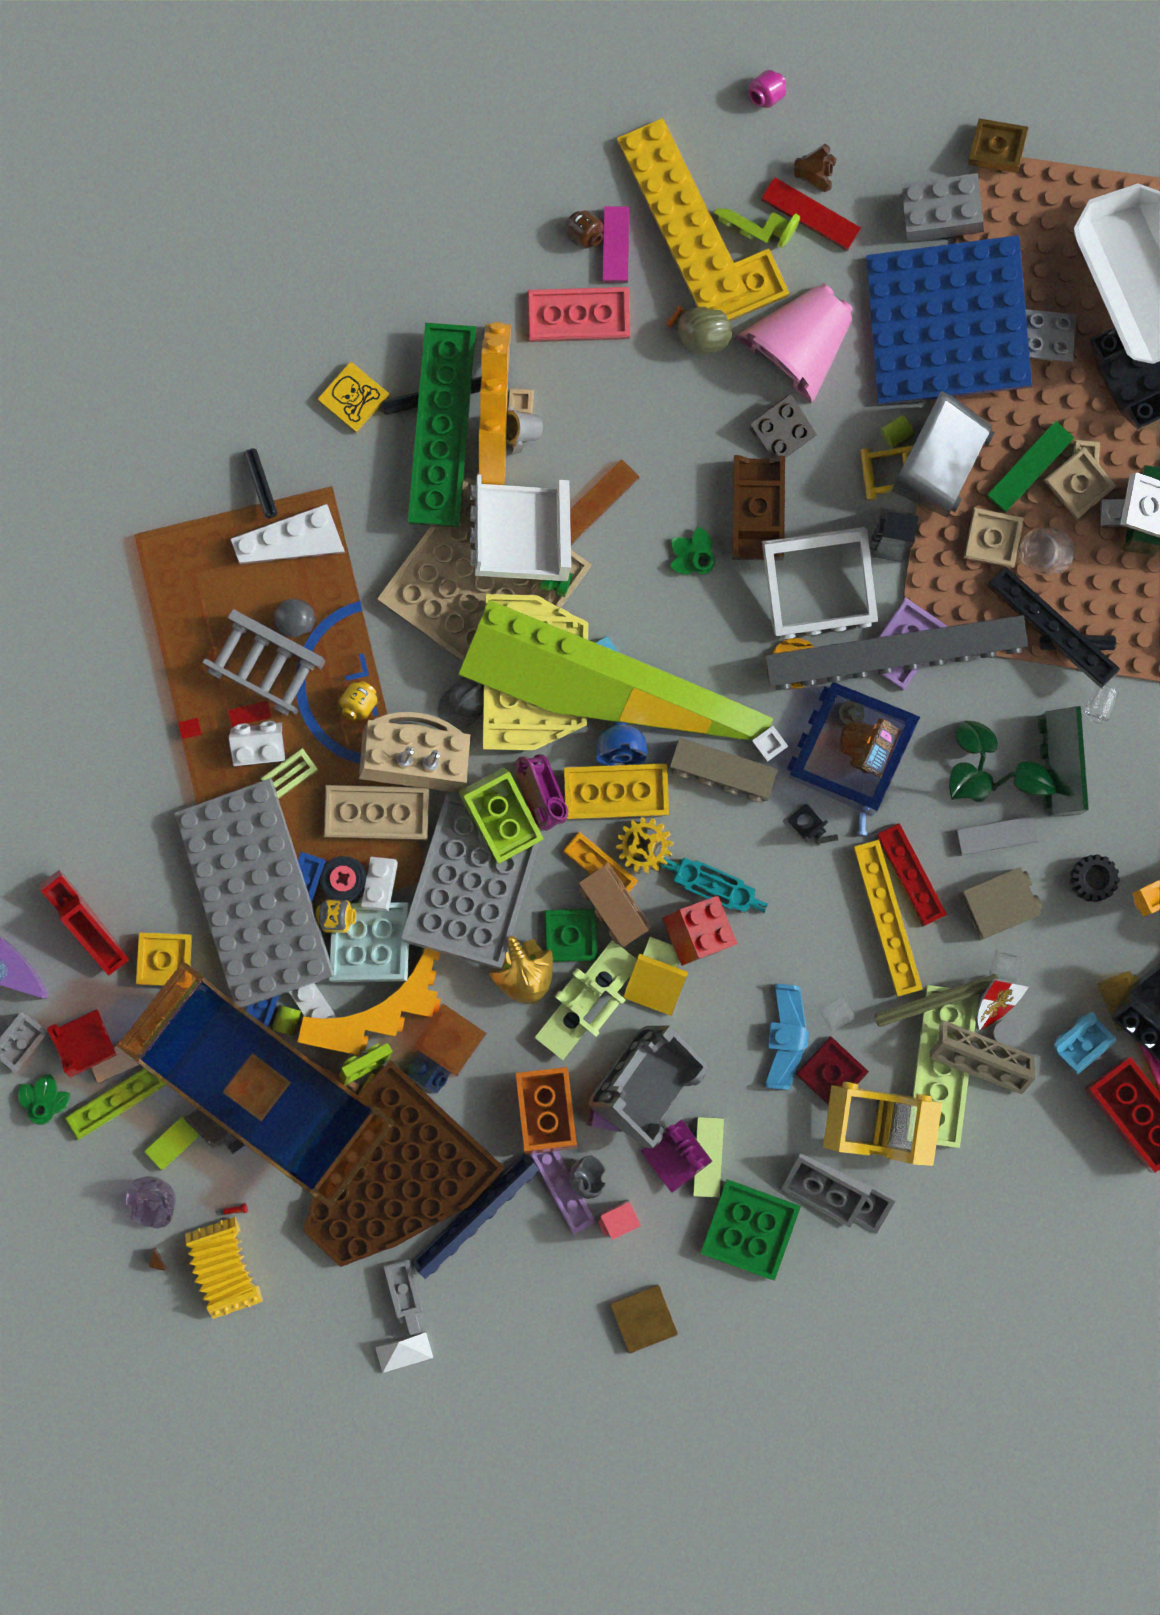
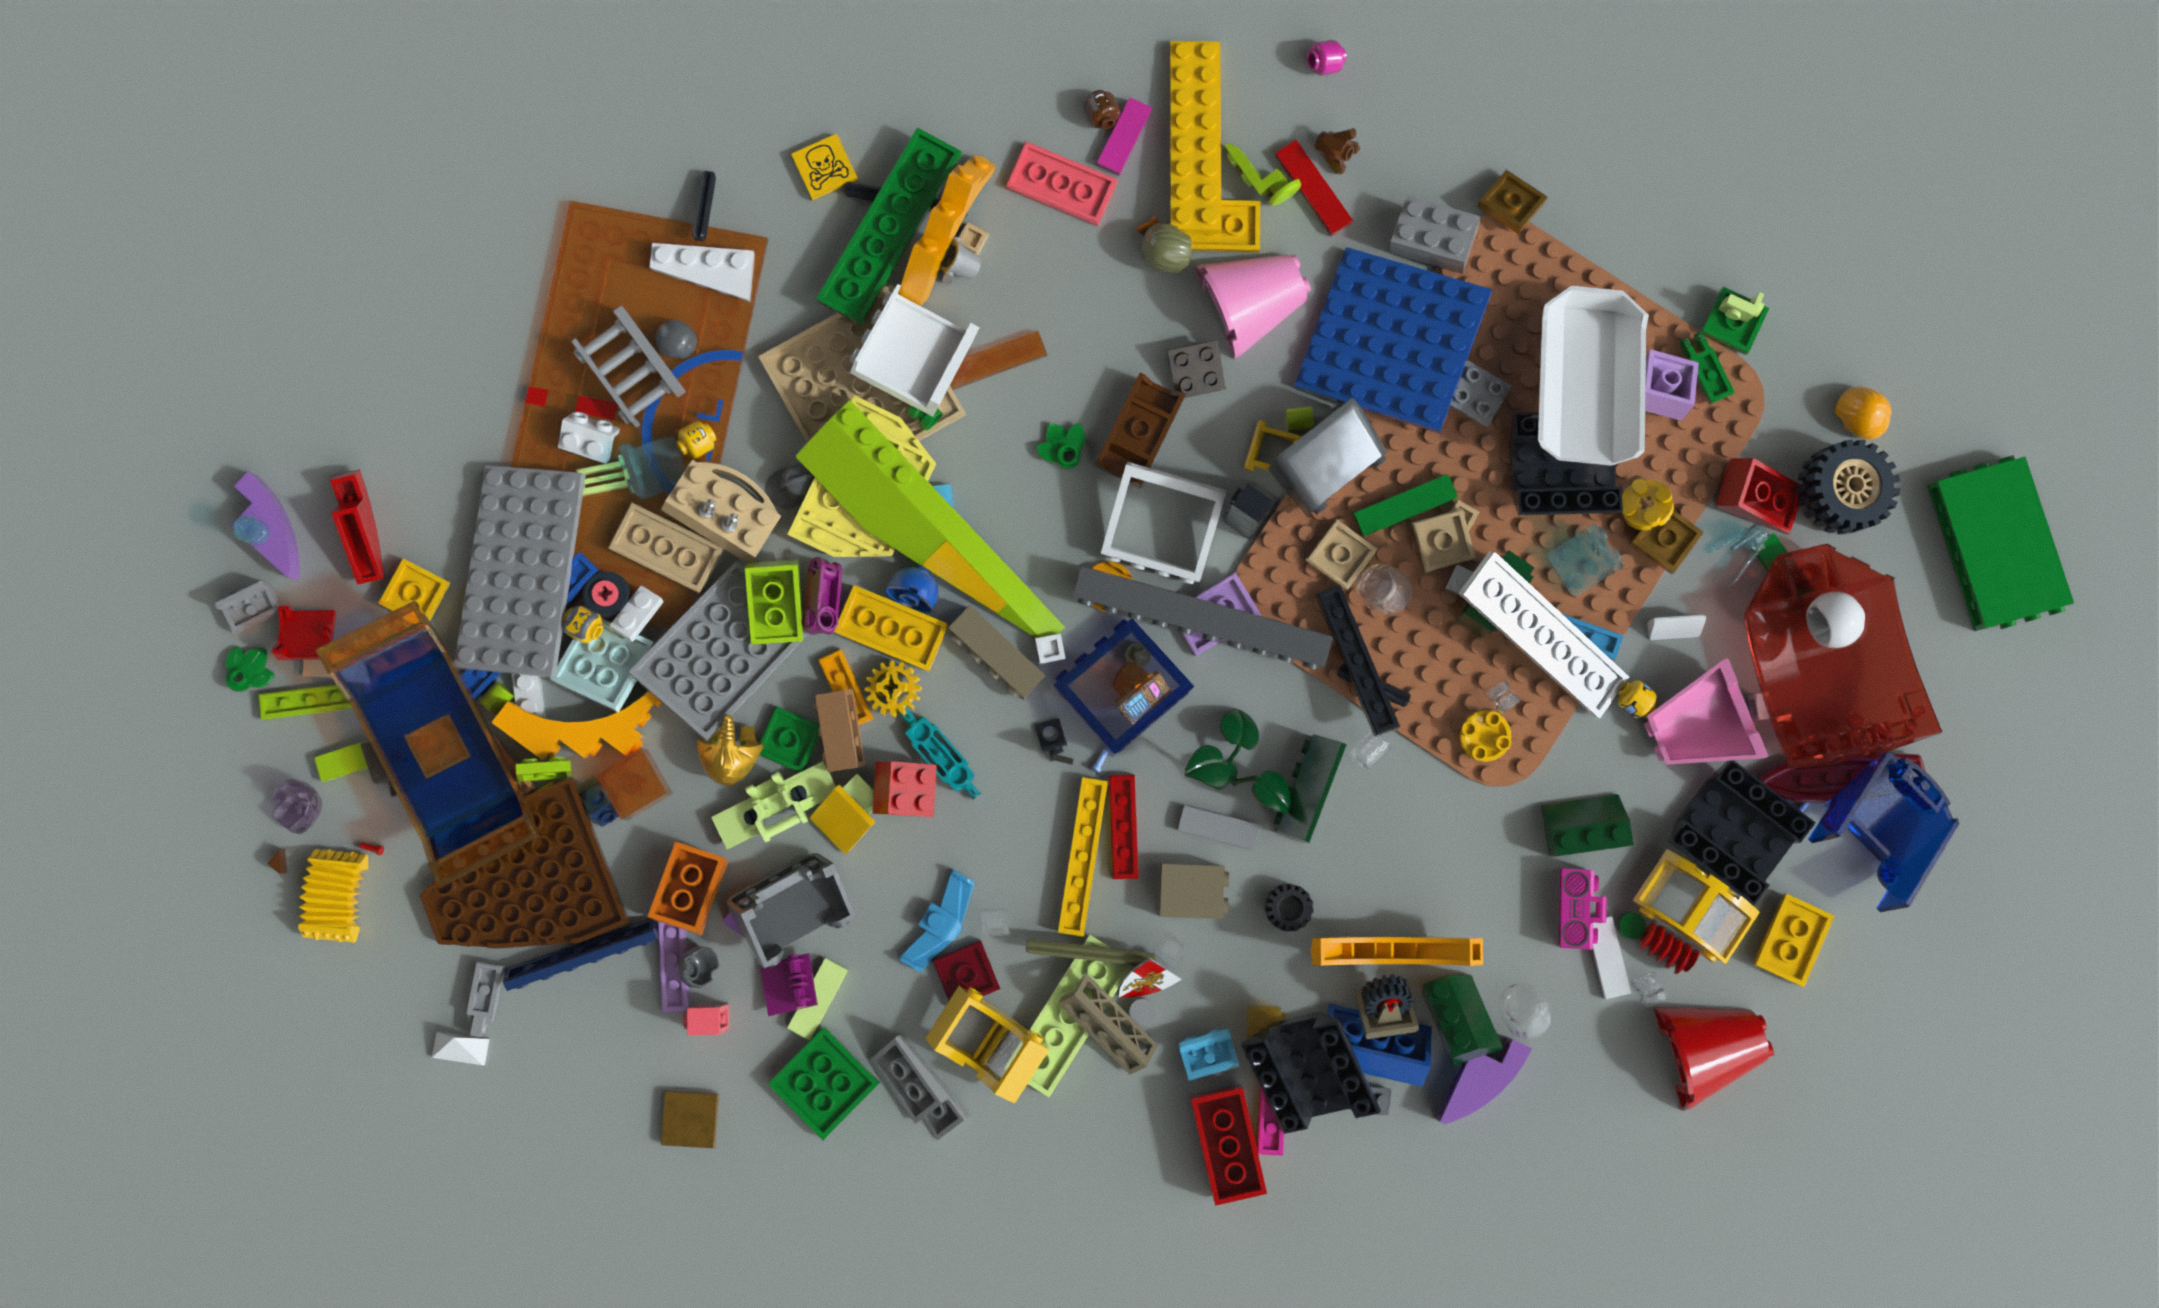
camera: 20 degrees right, 0 degrees up
(331, 743) = (652, 466): none -> clear light blue bracket

